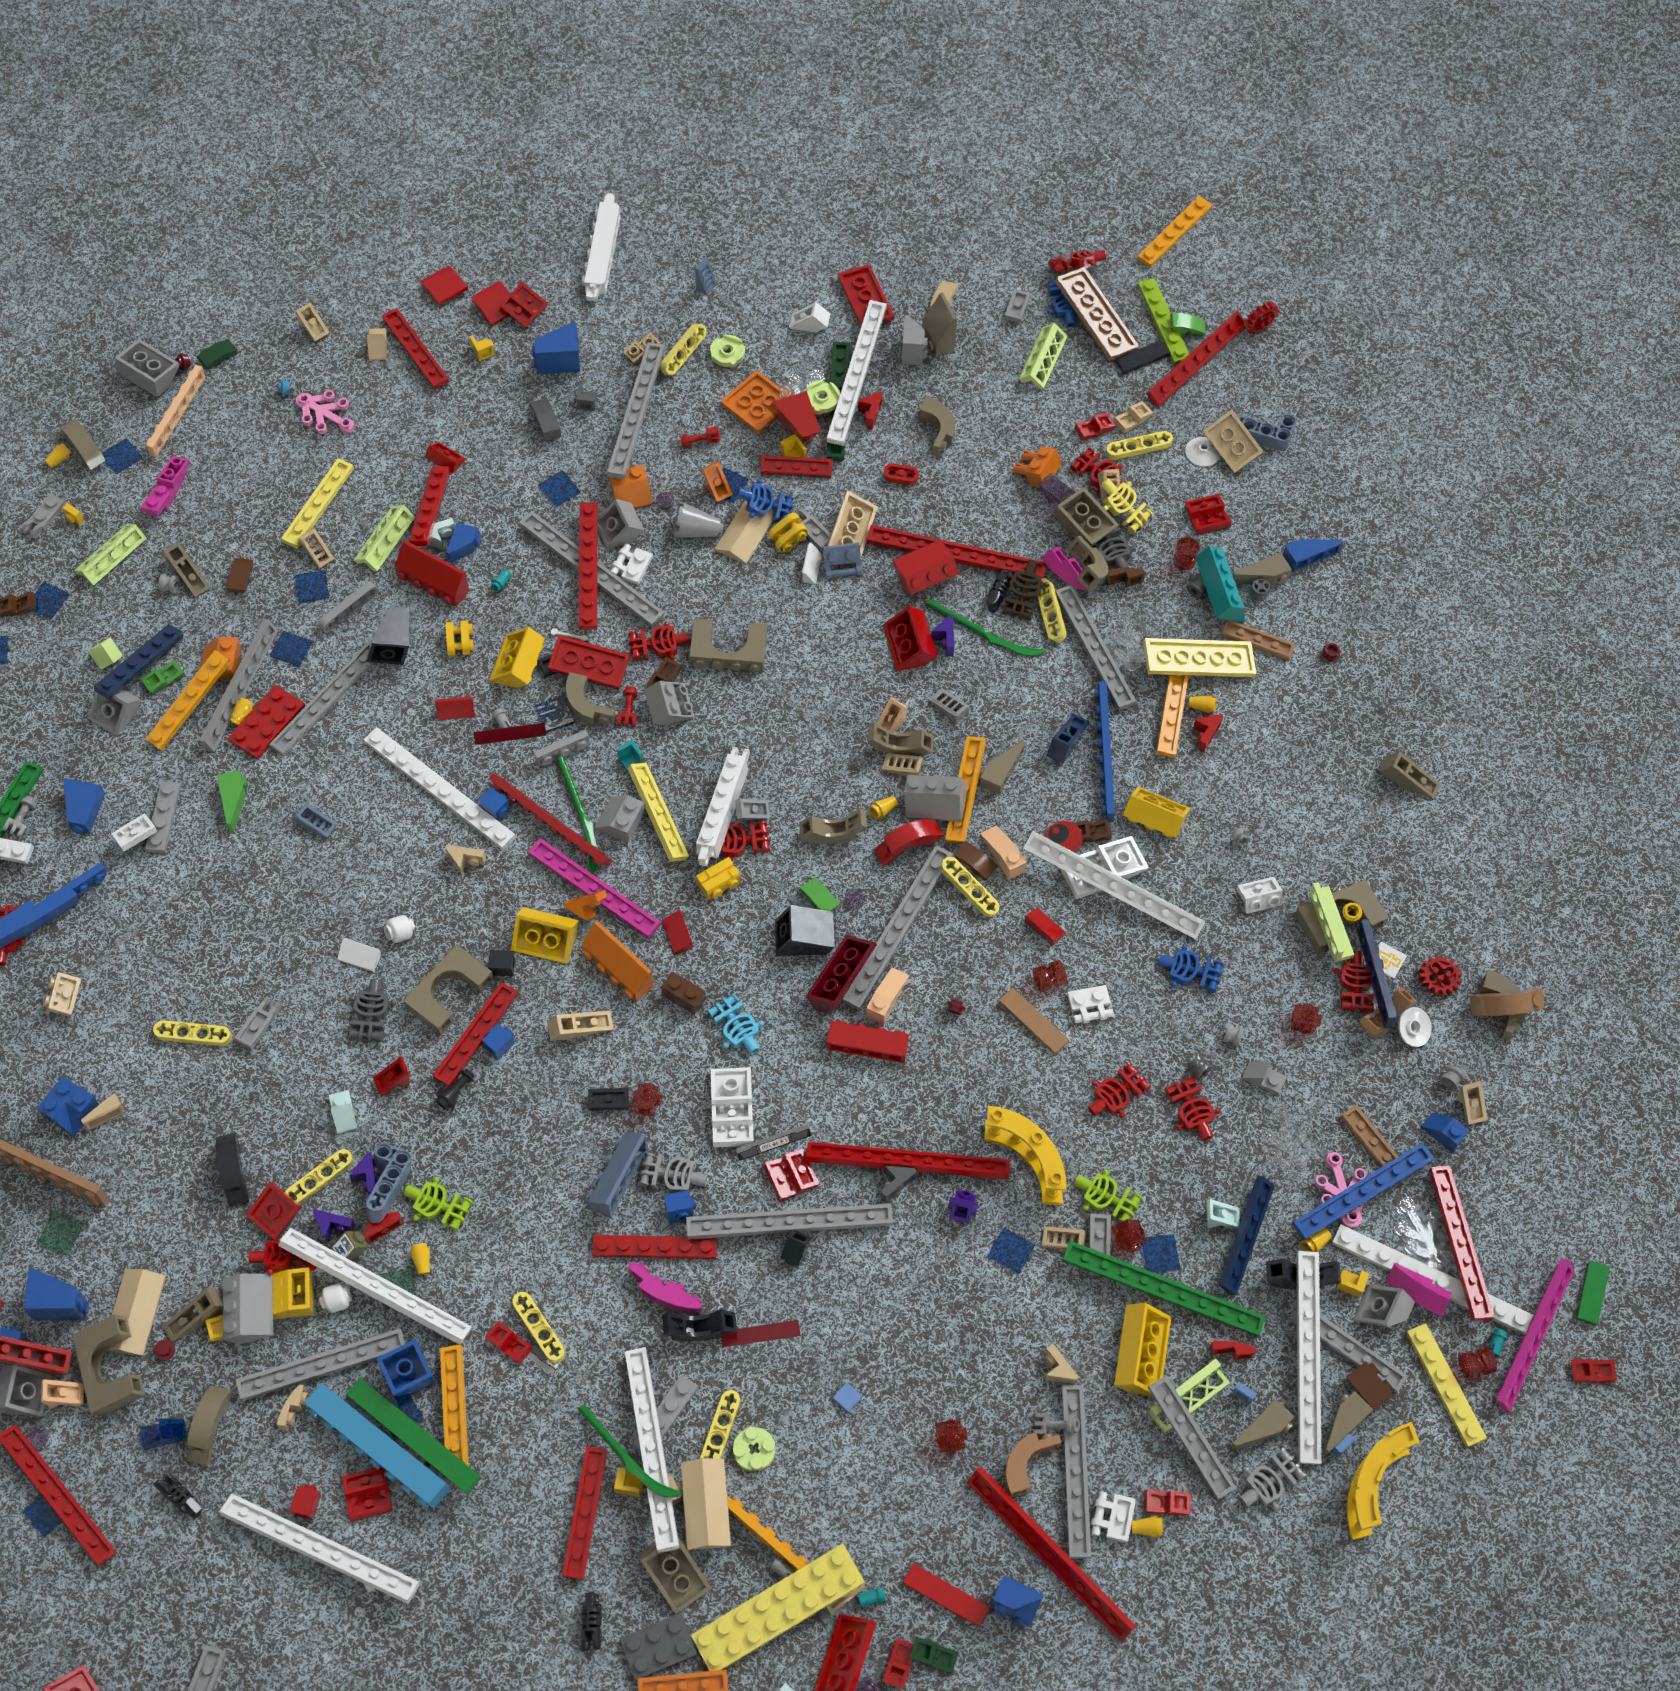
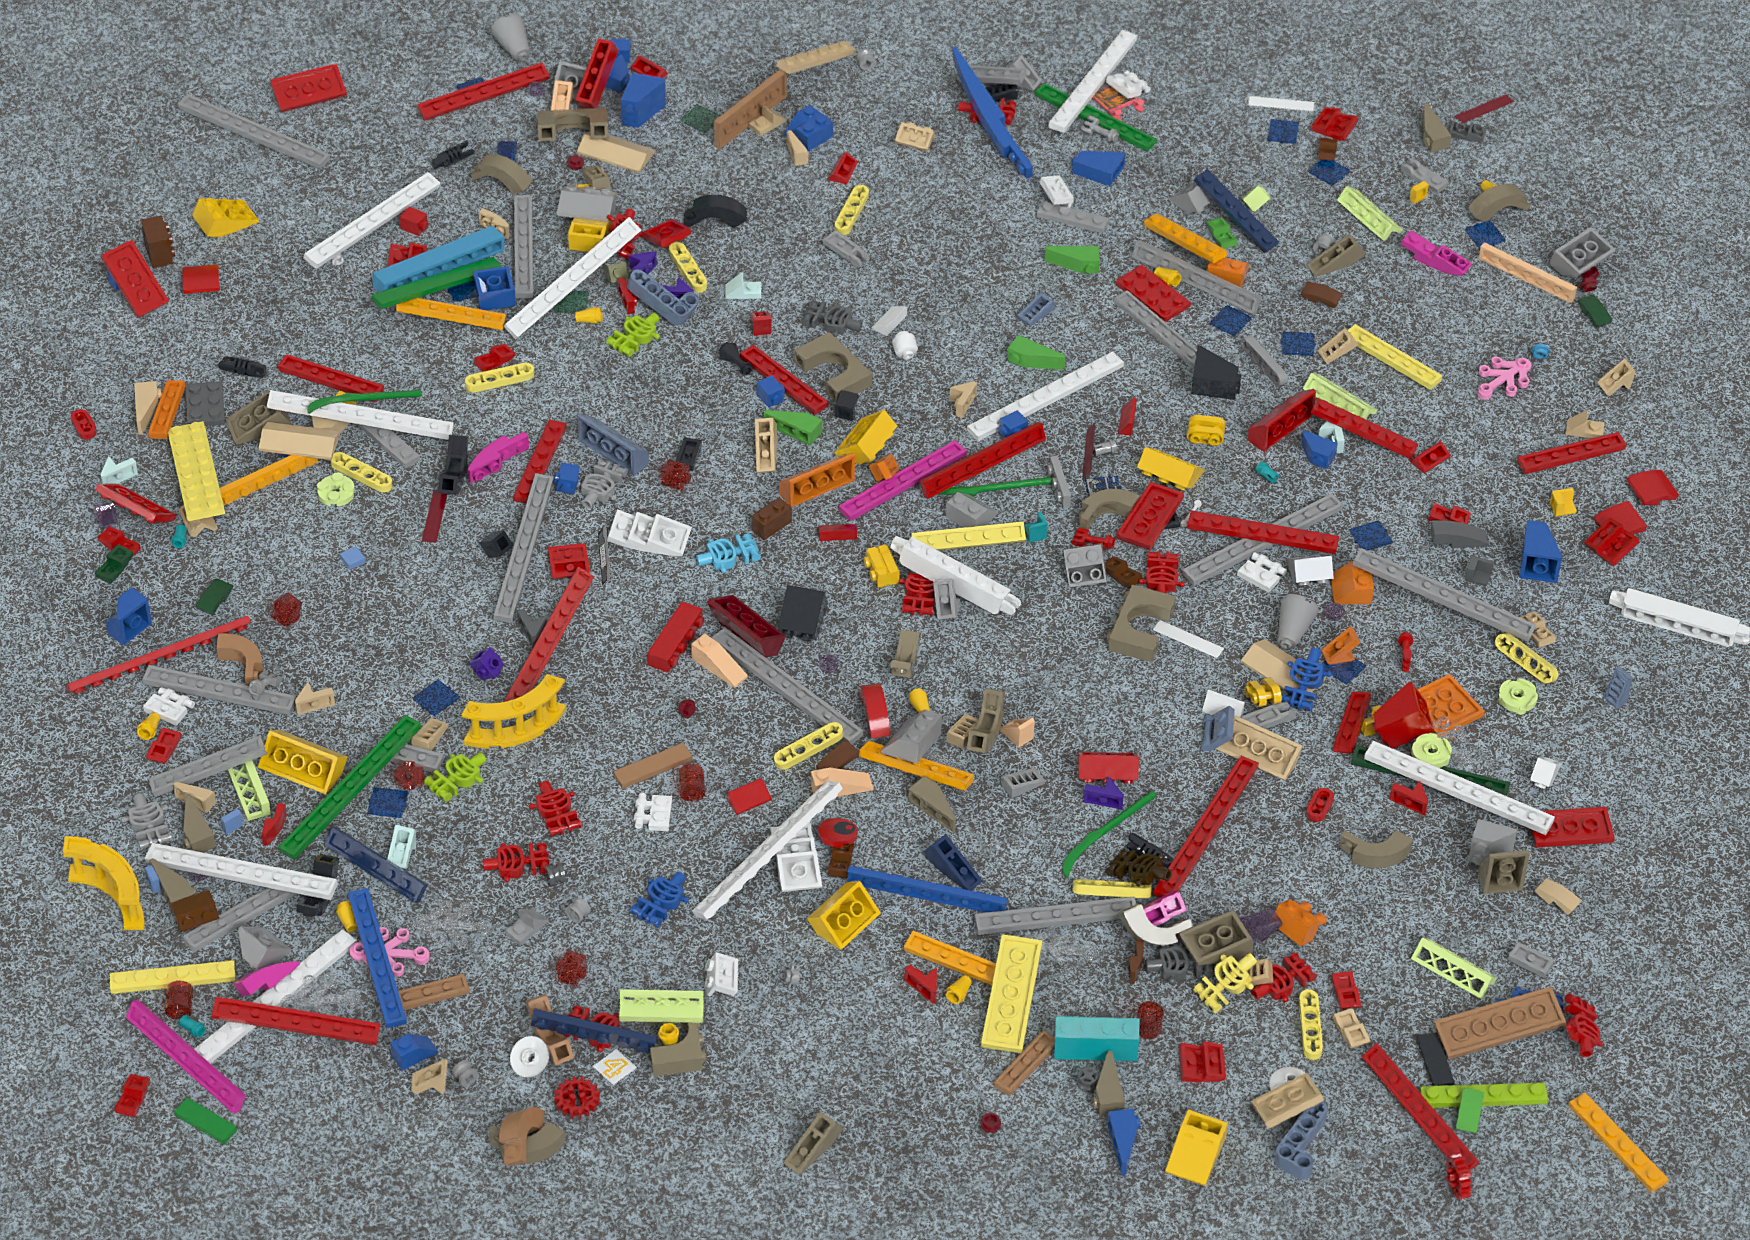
camera: 105 degrees right, 15 degrees down
(55, 1154) = (769, 120): none -> tan slope
(124, 1060) = (843, 169): none -> red slope
(335, 1297) = (573, 255): white head -> none
(385, 812) = (1034, 355): none -> bright green slope
(519, 431) = (1441, 513): none -> red slope
(543, 998) = (797, 425): none -> bright green slope
(729, 610) = (1188, 639): none -> white sticker
(819, 895) = (839, 634): bright green slope -> none
(925, 567) = (1187, 789): red slope -> none
(946, 1595) = (165, 579): red tile -> none
(948, 1525) = (213, 596): none -> dark green slope
(1225, 1434) = (202, 797): none -> tan slope
(1300, 498) = (1197, 1147): none -> yellow slope
(1353, 1283) = (296, 933): yellow panel -> none

